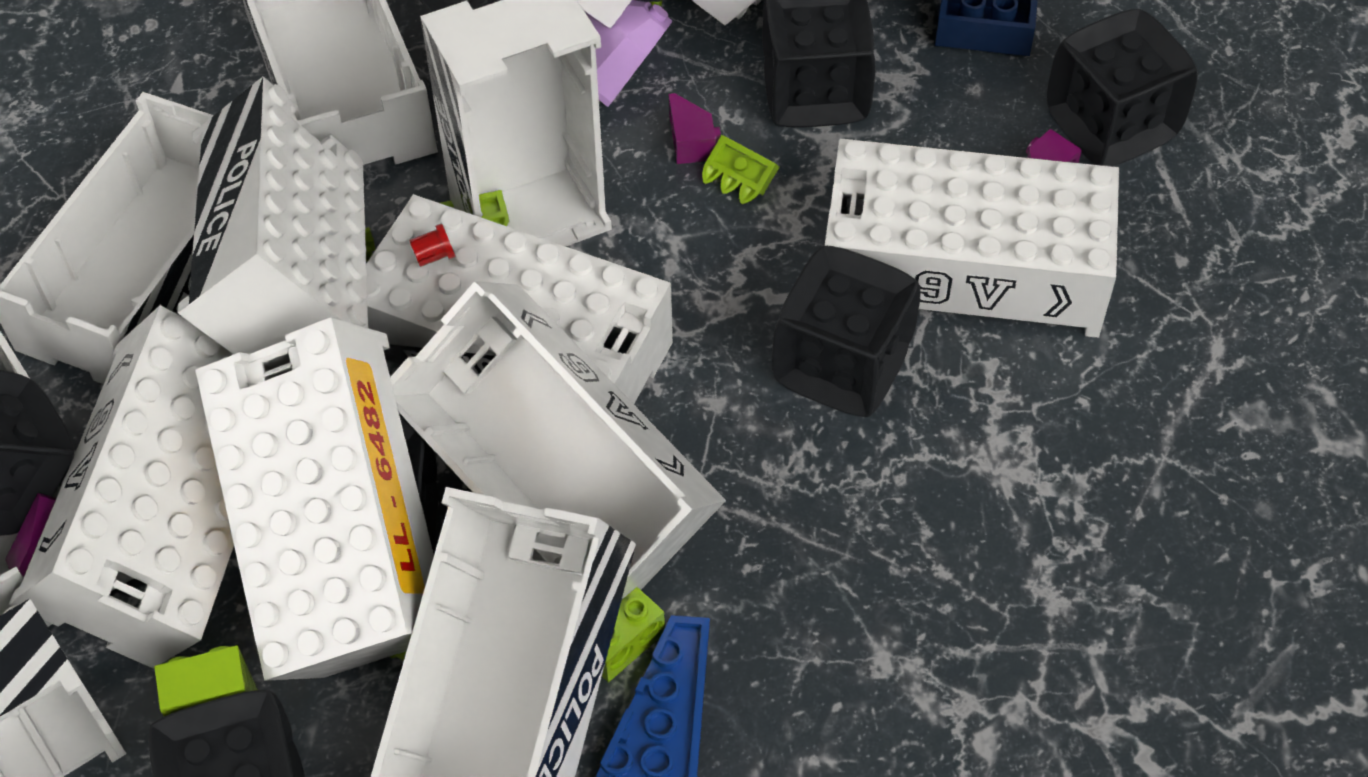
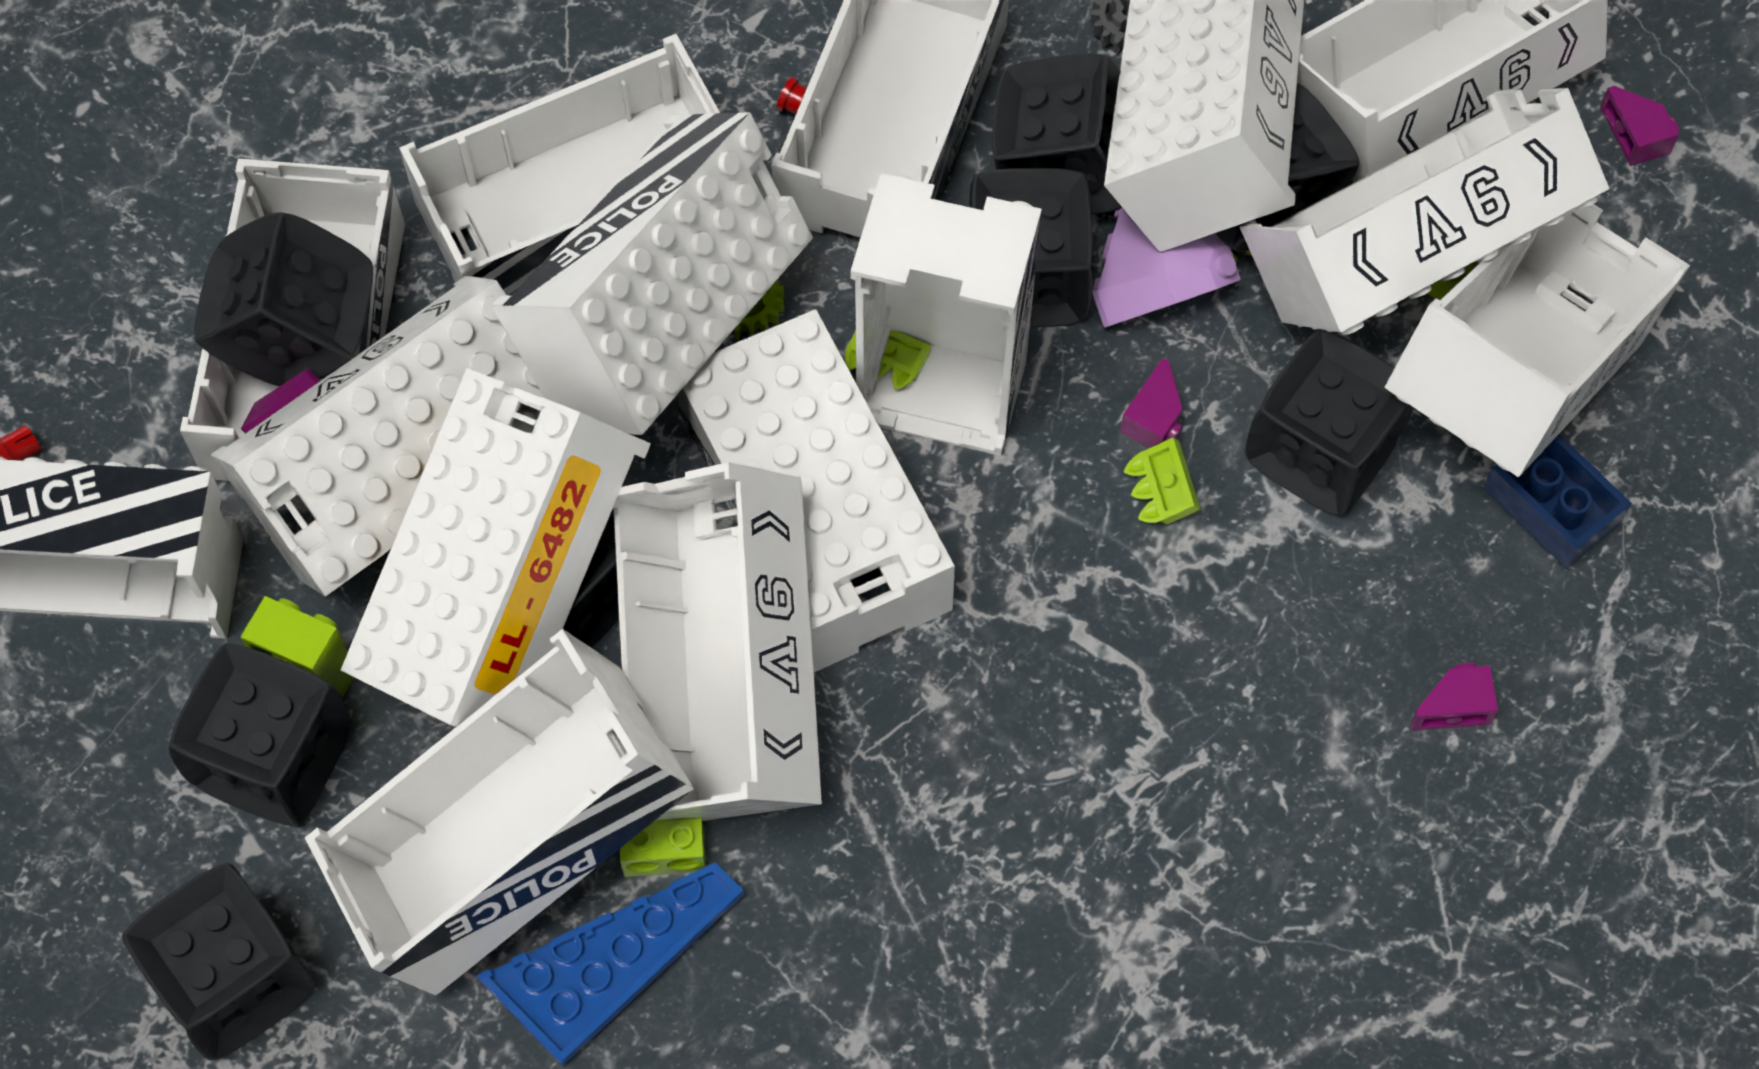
camera: 40 degrees right, 10 degrees up
(432, 246) = (776, 379): red bush -> none
(845, 330) = (1085, 724): black piece -> none
(984, 229) = (1292, 717): white piece -> none
(1121, 87) = (1594, 677): black piece -> none

